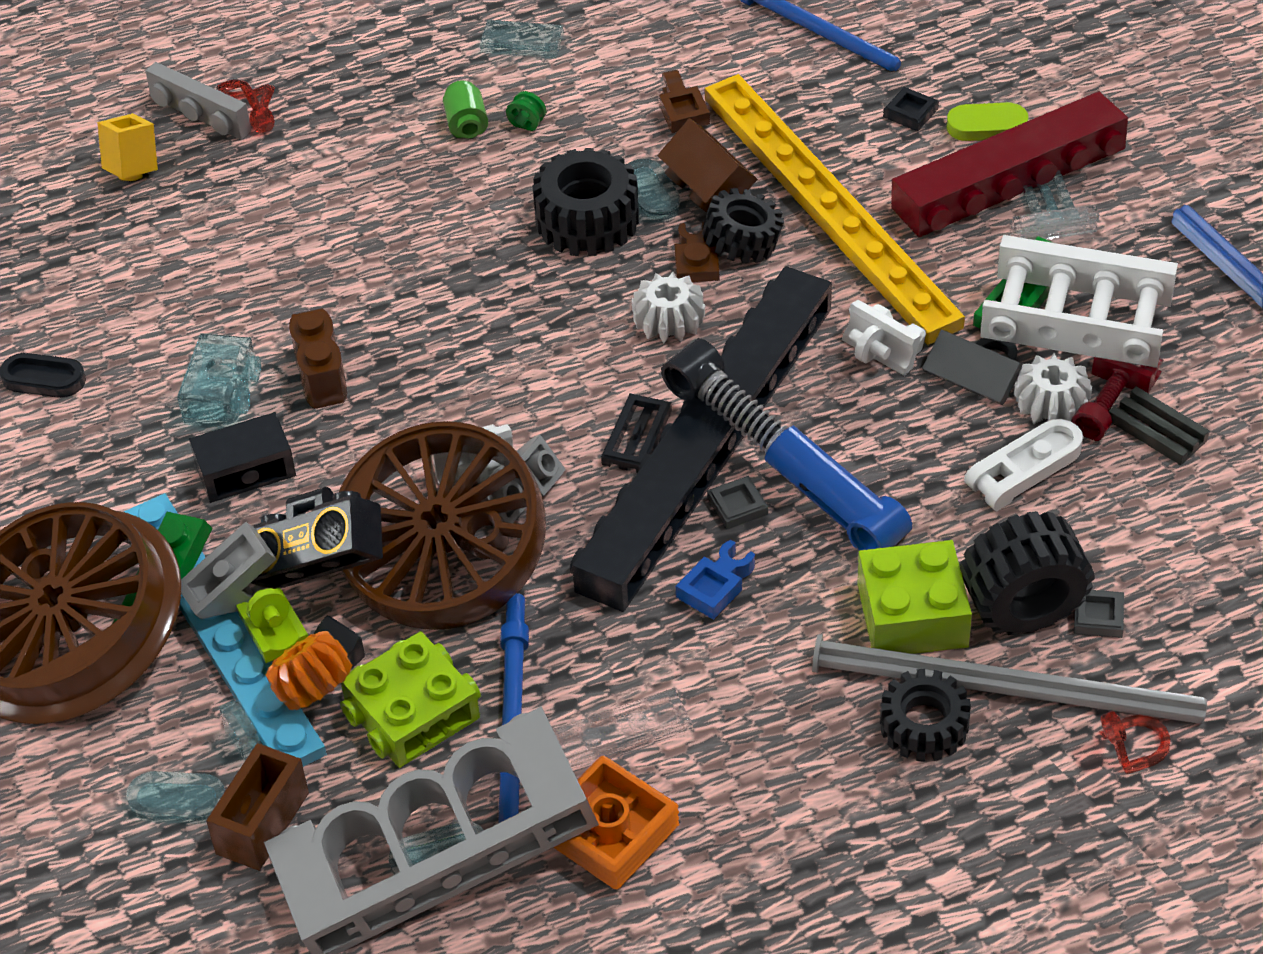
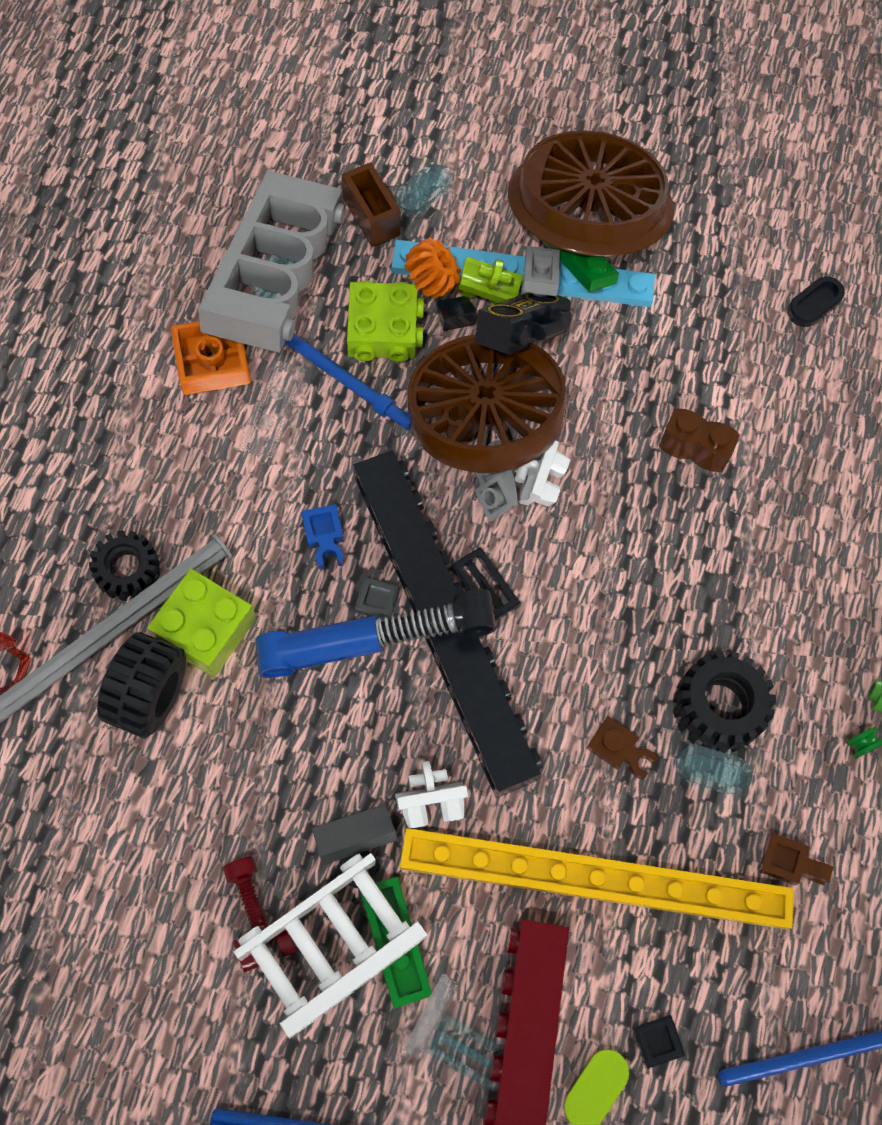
camera: 120 degrees right, 20 degrees up
(218, 380) = (724, 363): clear light blue brick -> none
(238, 728) = (433, 228): clear light blue tile -> none
(242, 457) = (646, 353): black brick -> none
(668, 307) = (562, 679): white gear -> none
(703, 165) = (694, 810): reddish brown brick -> none
(742, 225) = (638, 797): black tyre -> none
(1025, 462) = (246, 797): white plate -> none
(1052, 388) = (284, 880): white gear -> none
(1100, 614) = (100, 736): dark grey tile -> none
(1162, 421) = (166, 921): pearl dark grey tile -> none

